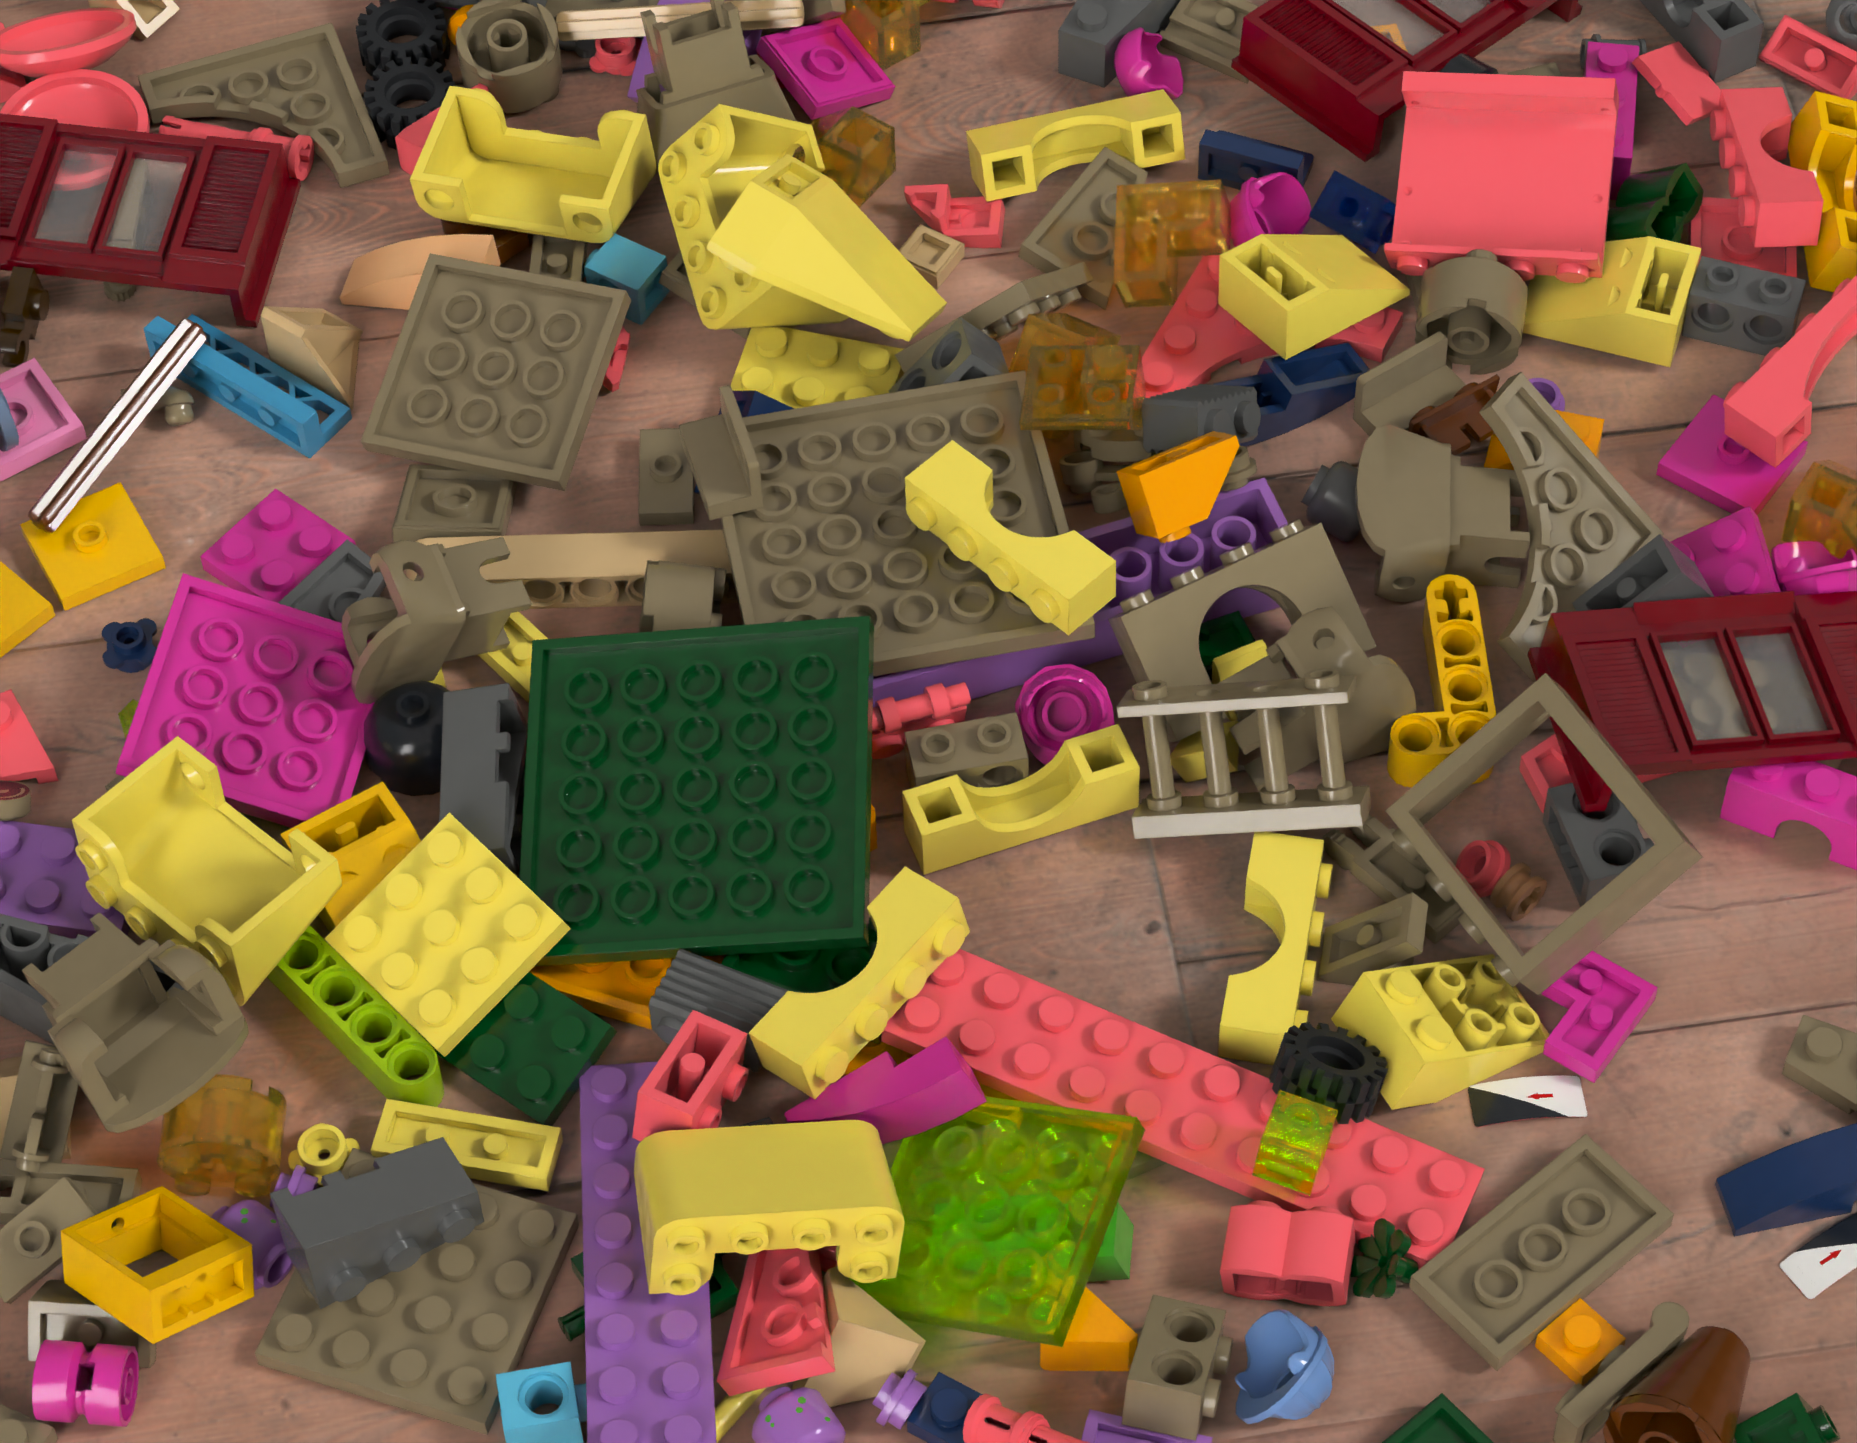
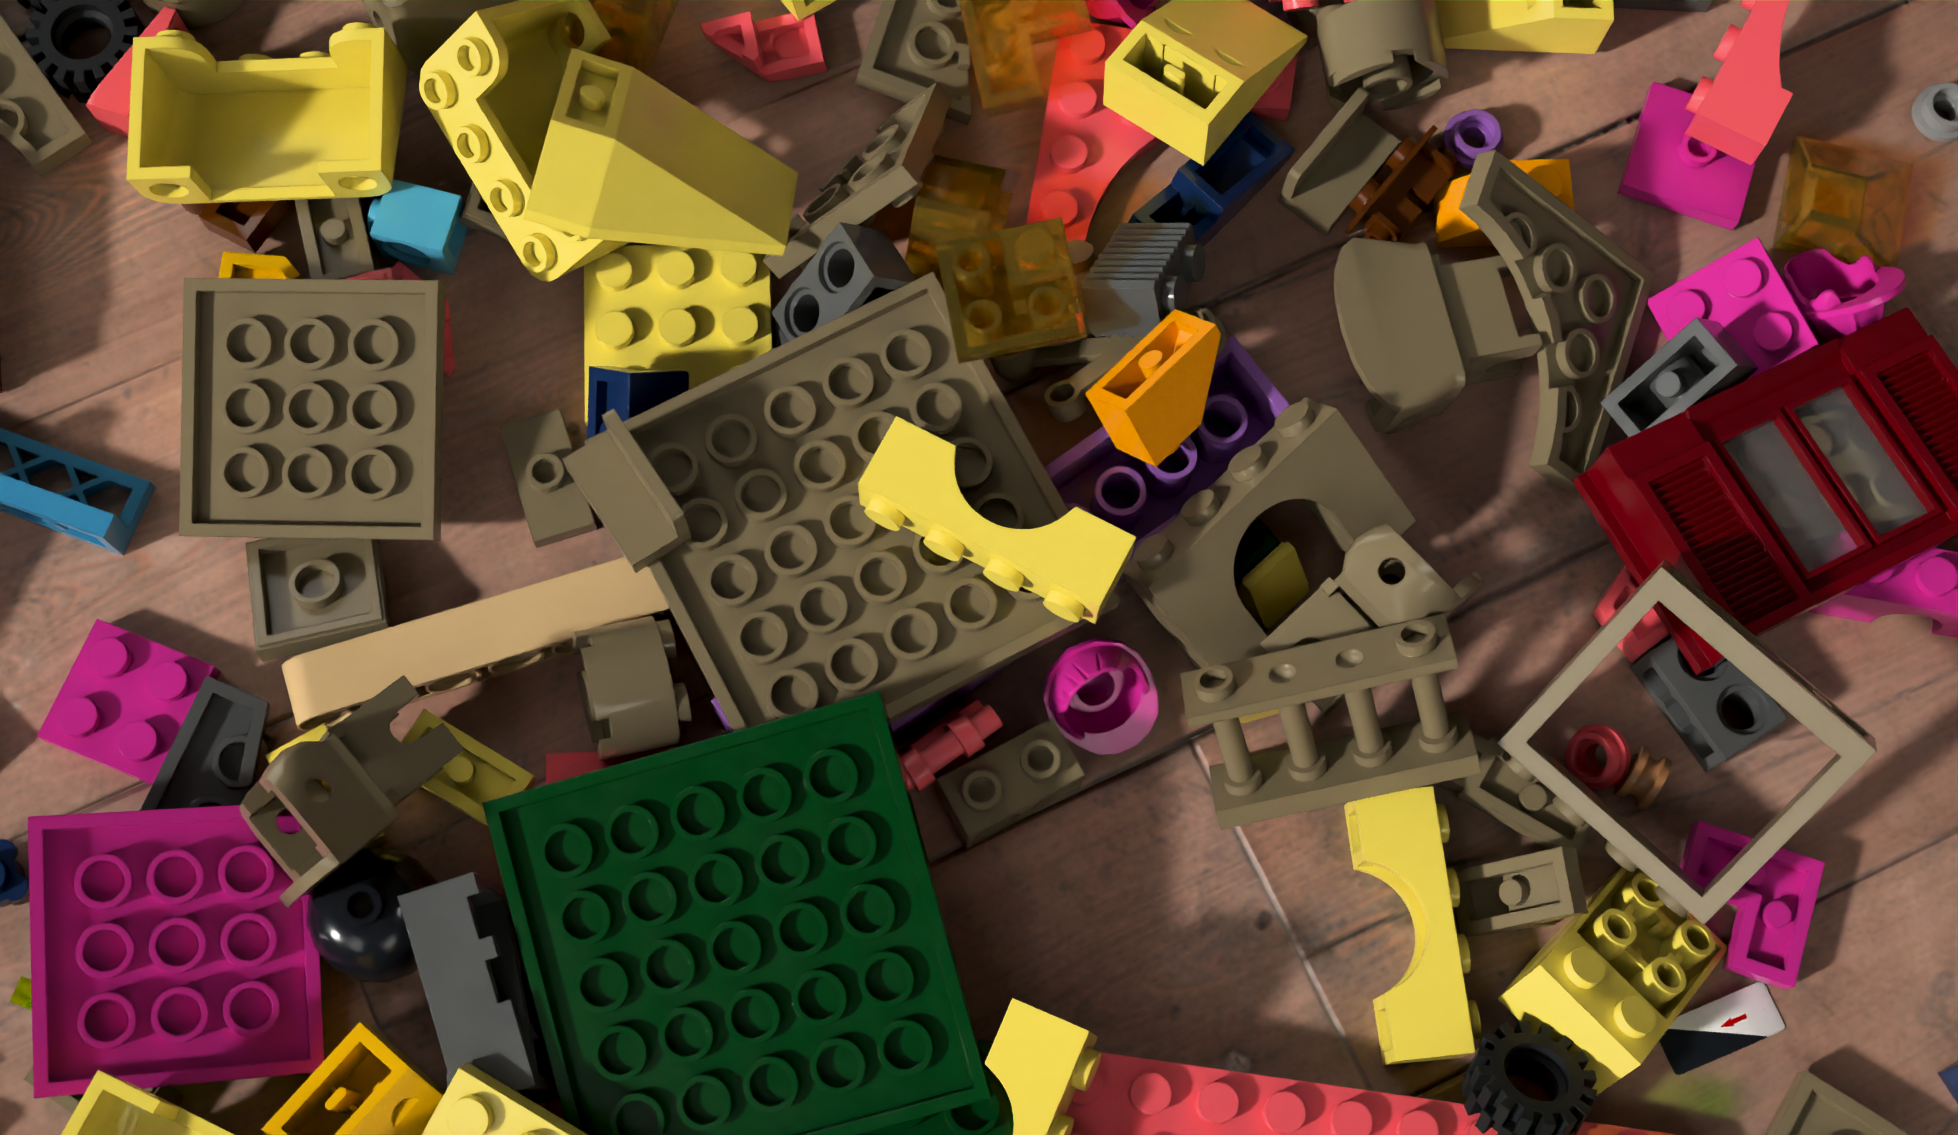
camera: 25 degrees left, 20 degrees up
(314, 348) = (84, 408): tan slope -> none
(392, 273) = (148, 284): light nougat slope -> none
(932, 254) = (753, 104): tan tile -> none
(1081, 784) = (1087, 820): light yellow arch -> none
(1333, 501) = (1304, 324): dark grey head -> none
(1457, 680) = (1489, 523): yellow beam -> none

